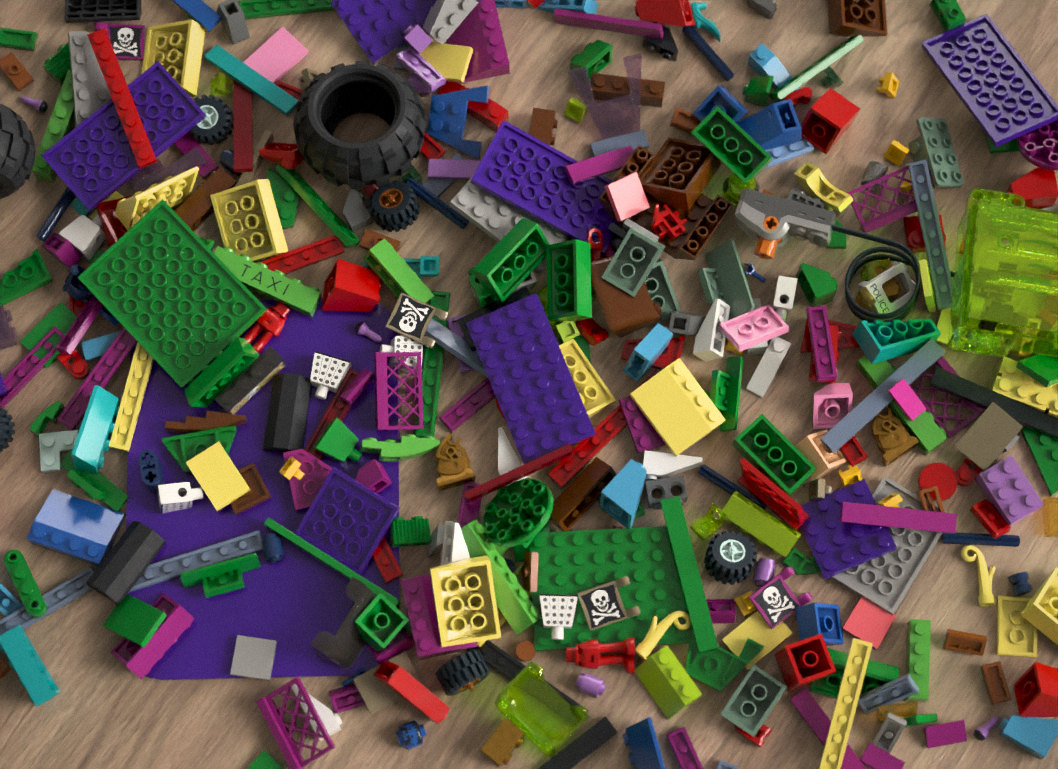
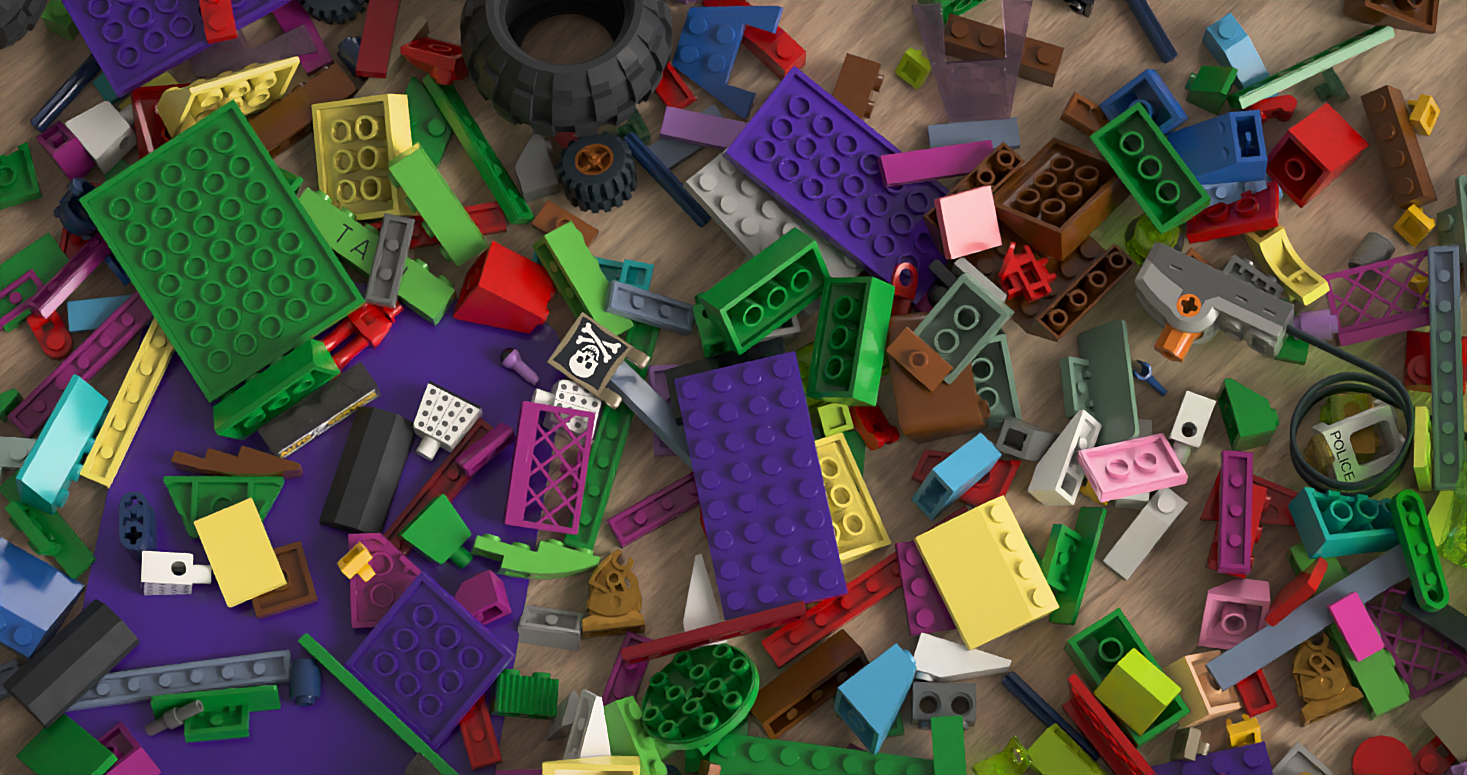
camera: 10 degrees right, 0 degrees up
(196, 584) = (174, 717): none -> dark grey bar
(277, 282) = (389, 260): none -> dark grey tile
(299, 242) = (437, 205): none -> bright green brick
(417, 488) = (550, 627): none -> light grey slope
(441, 283) = (649, 308): none -> sand blue tile
(613, 284) = (919, 359): none -> dark orange plate
(782, 462) = (1136, 691): none -> lime slope
(793, 164) = (1242, 216): none -> red wing
(849, 221) = (1317, 323): none -> medium lavender brick
(867, 385) = (1296, 592): none -> red tile
(878, 107) = (1398, 147): none -> reddish brown brick
(937, 347) = (1419, 550): none -> green plate

